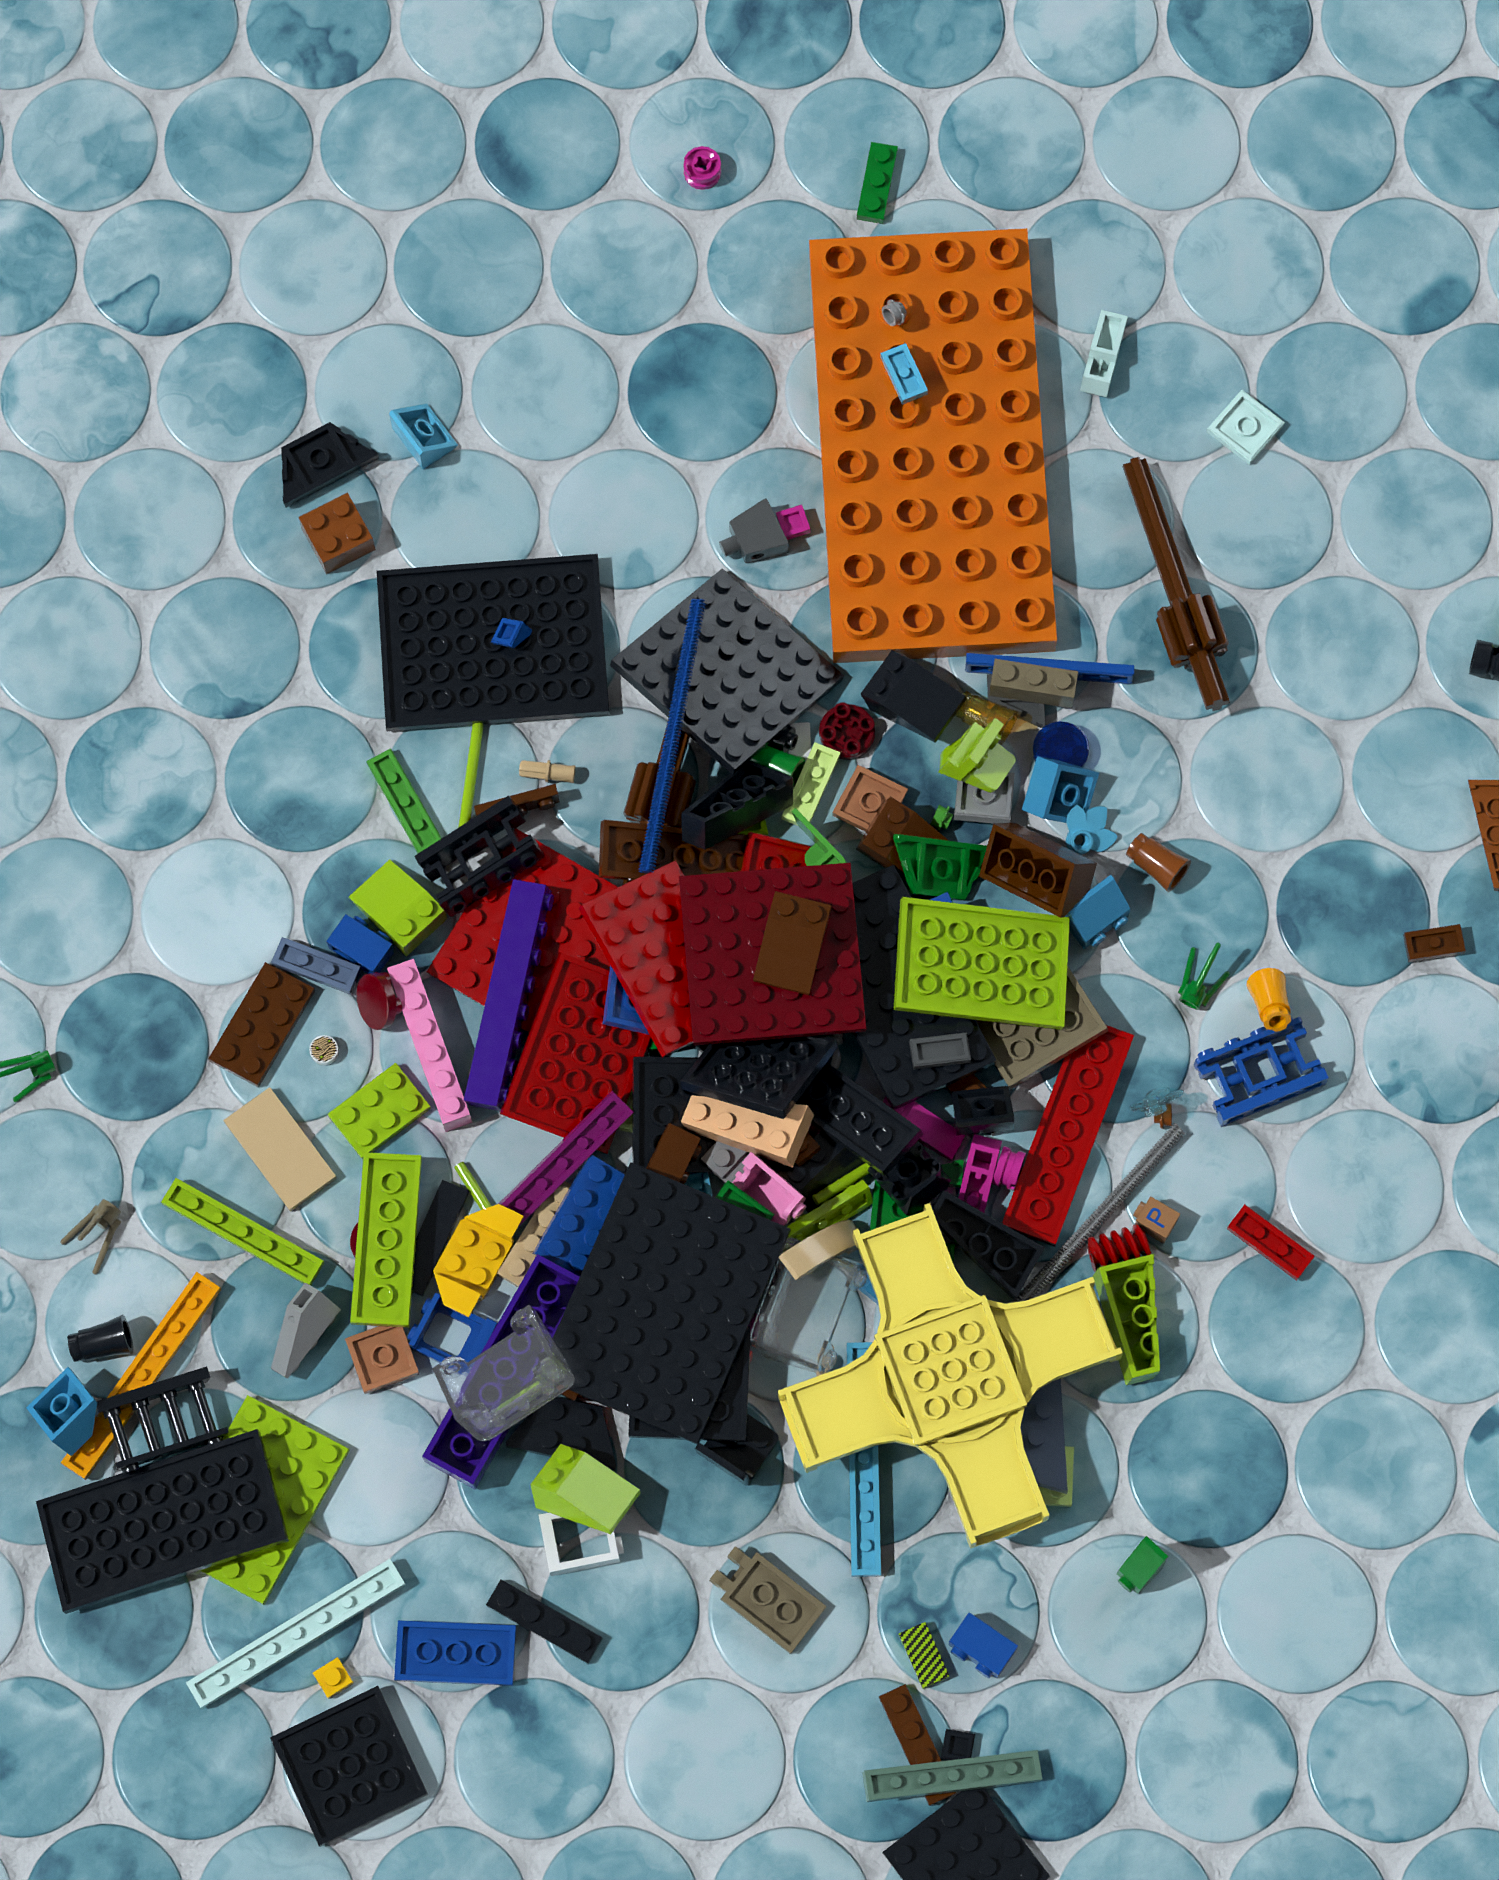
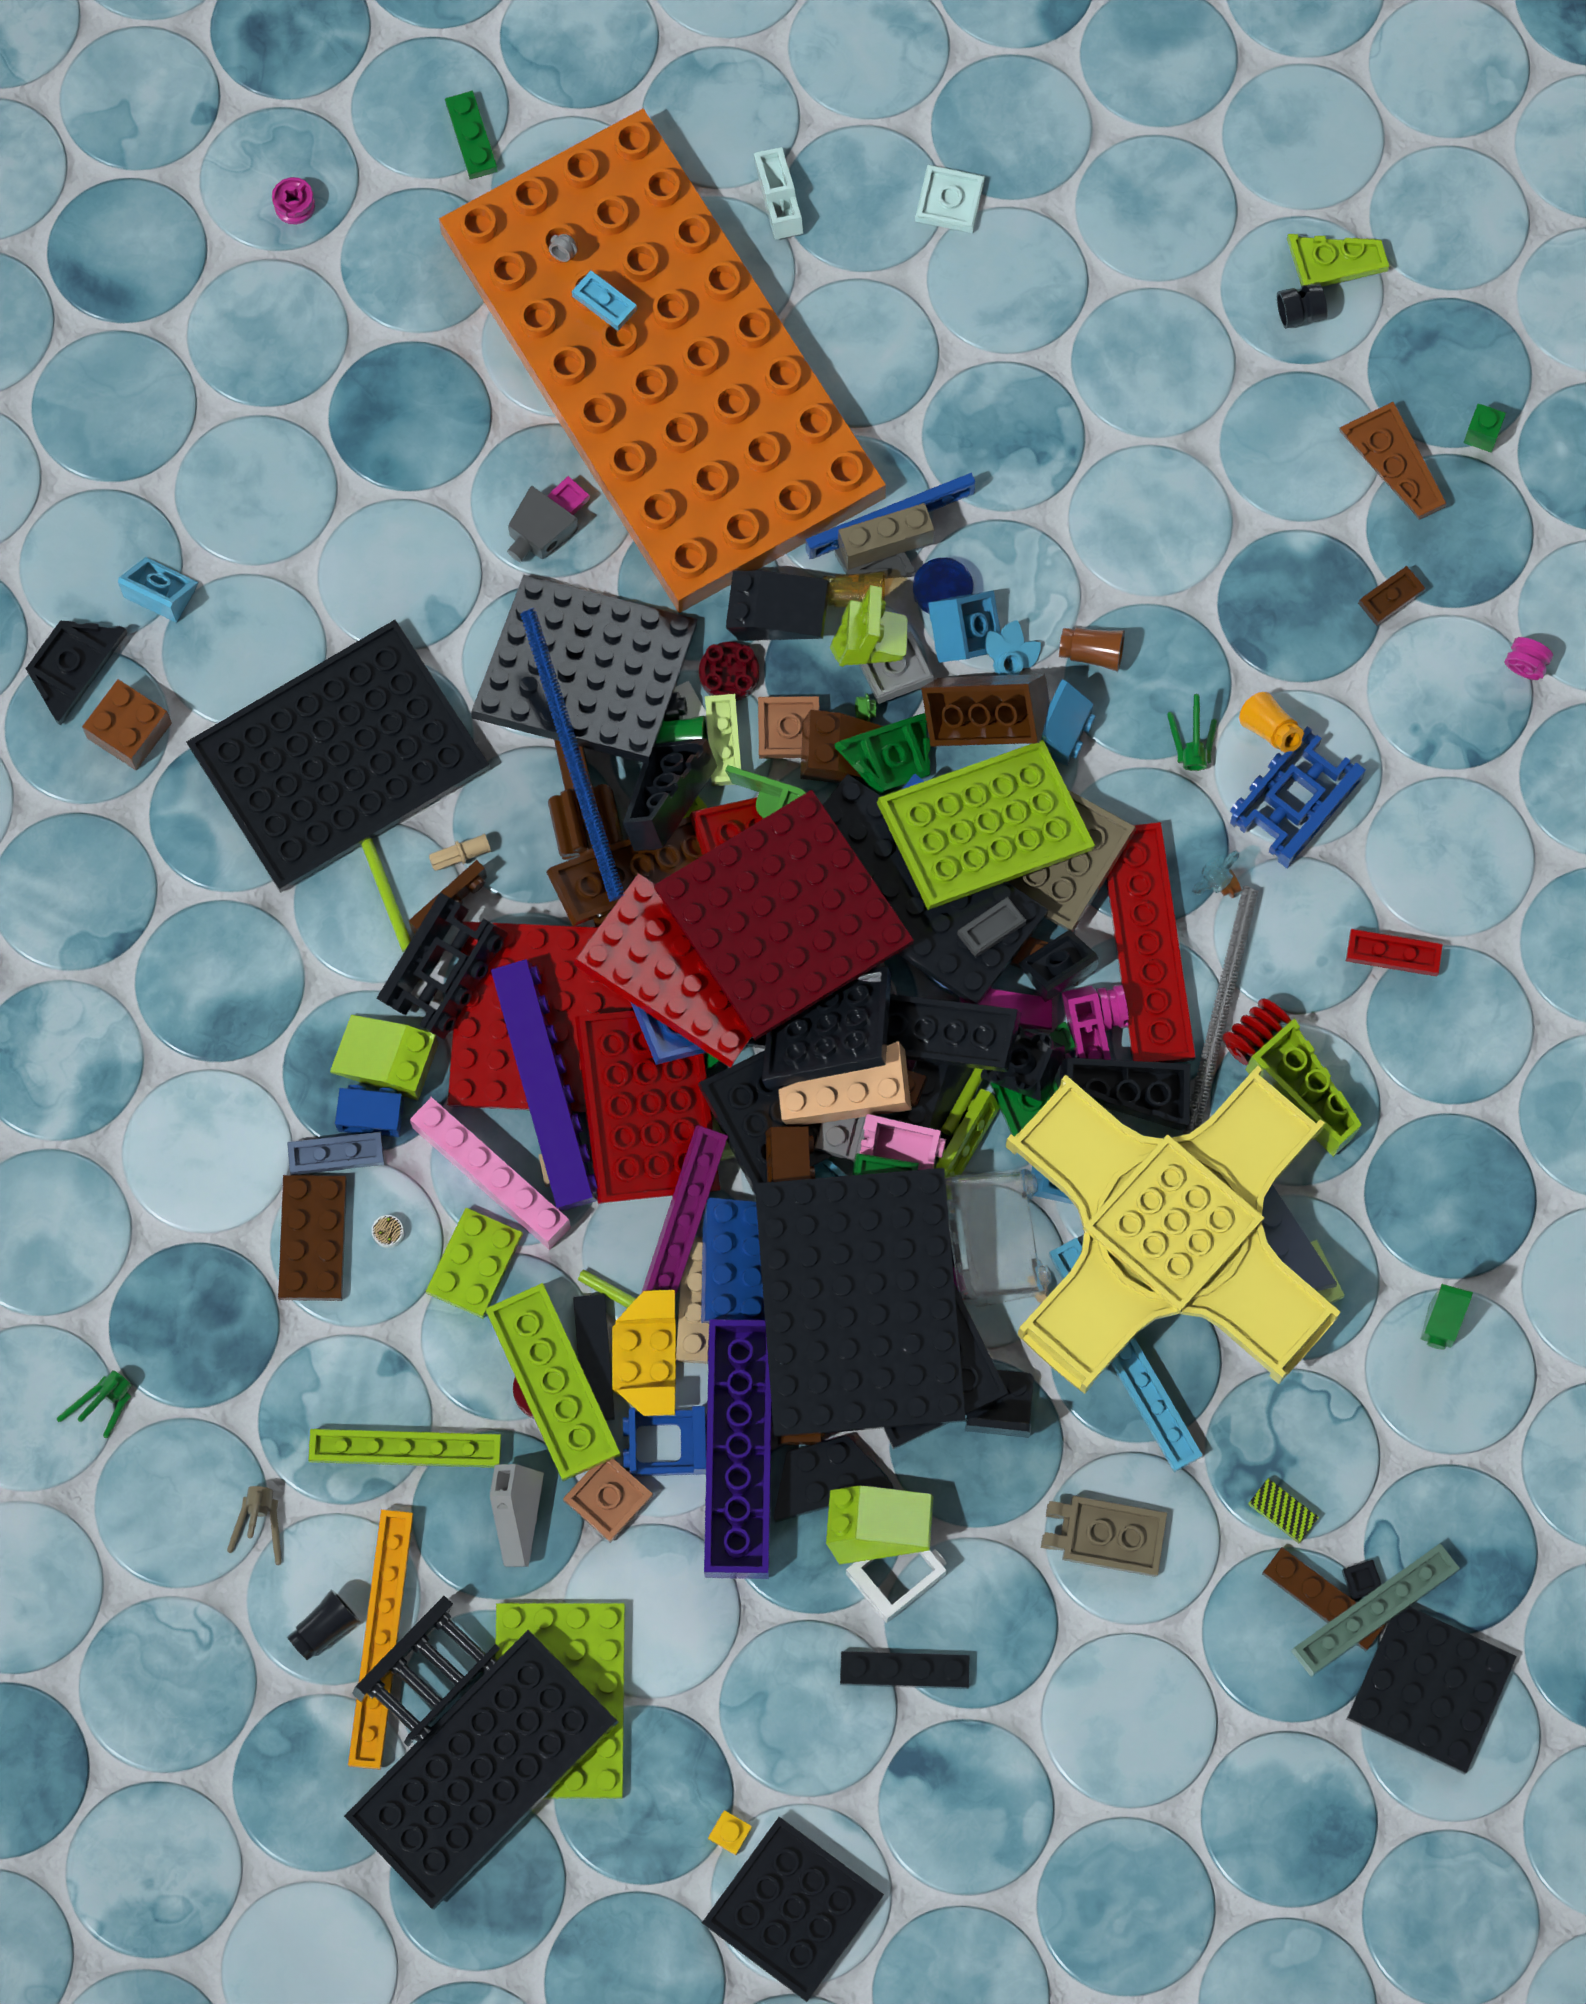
camera: 30 degrees left, 0 degrees up
(65, 1412) = (328, 1711): dark azure slope -> none
(280, 1149) = (396, 1349): tan tile -> none
(295, 1634) = (670, 1809): light aqua plate -> none
(377, 1000) = (416, 1156): dark red tile -> none
(403, 800) = (334, 951): bright green tile -> none
(455, 1653) = (836, 1745): blue plate -> none
(505, 1379) = (748, 1452): clear windscreen -> none
(511, 633) = (352, 736): blue slope -> none
(792, 943) = (801, 892): reddish brown slope -> none
(819, 1248) = (980, 1174): tan slope -> none
(982, 1646) = (1334, 1472): blue brick -> none
(1156, 1219) = (1276, 984): medium nougat brick -> none
(1191, 622) = (1002, 406): reddish brown axle -> none

